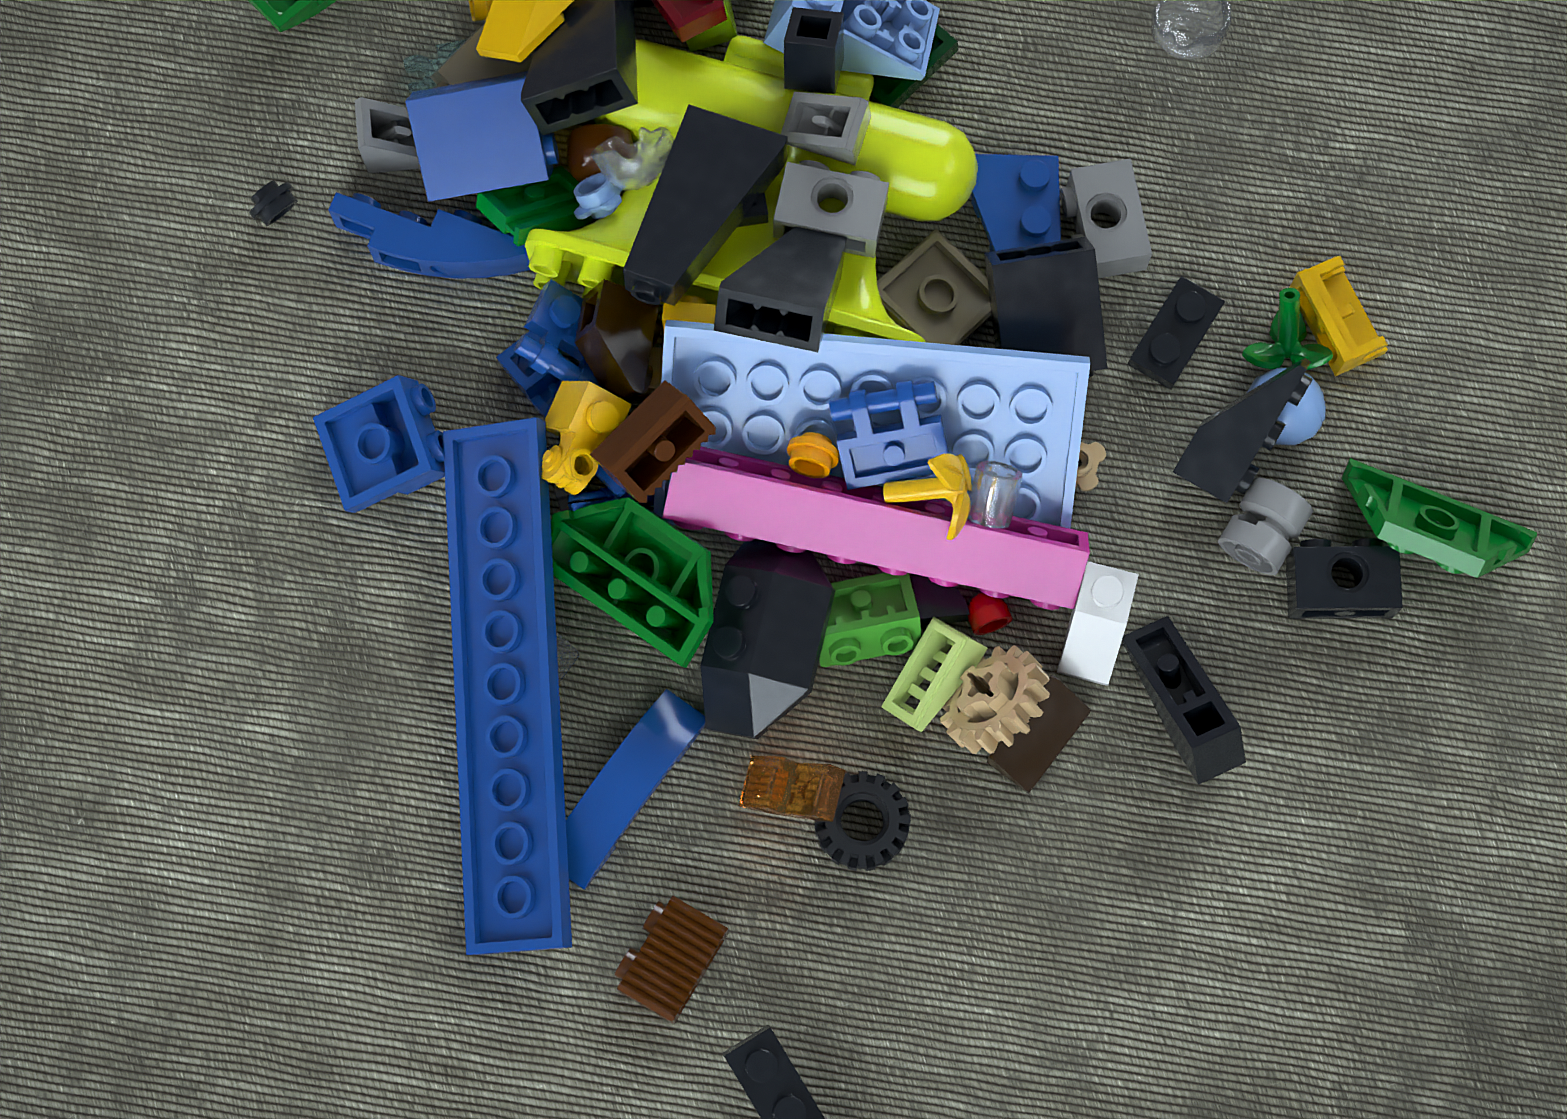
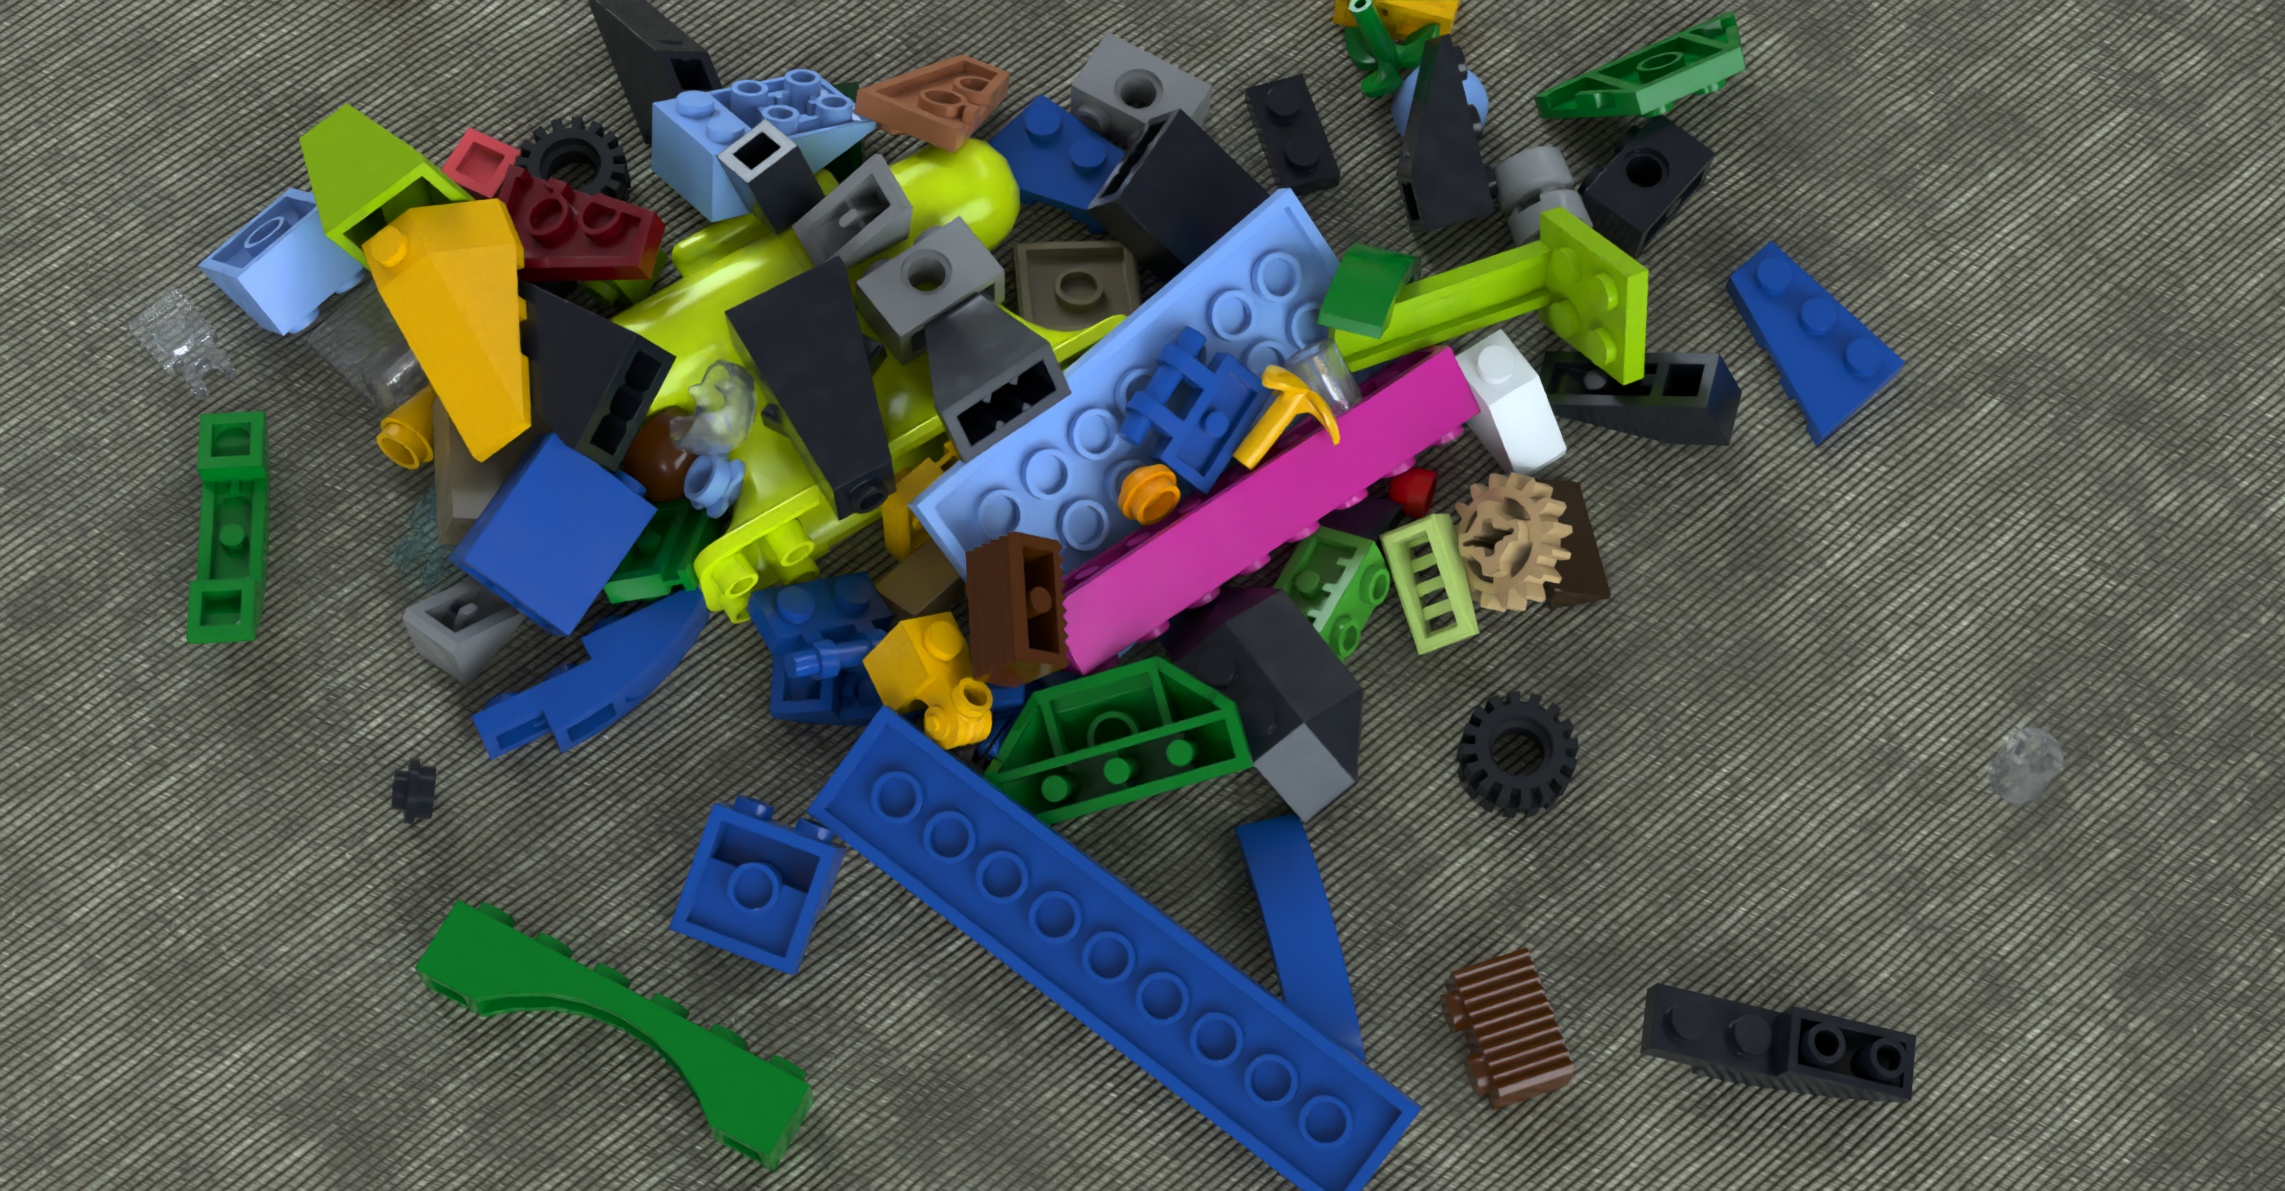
camera: 55 degrees left, 10 degrees down
(245, 542) = (498, 970): none -> green arch
(617, 339) = (867, 575): dark brown slope -> none
(792, 788) = (1436, 786): clear orange slope -> none
(978, 102) = (937, 101): none -> nougat wing
(1077, 465) = (1366, 289): none -> green slope
(1211, 571) = (1572, 276): none -> lime bracket
(1333, 780) = (1815, 342): none -> blue wing

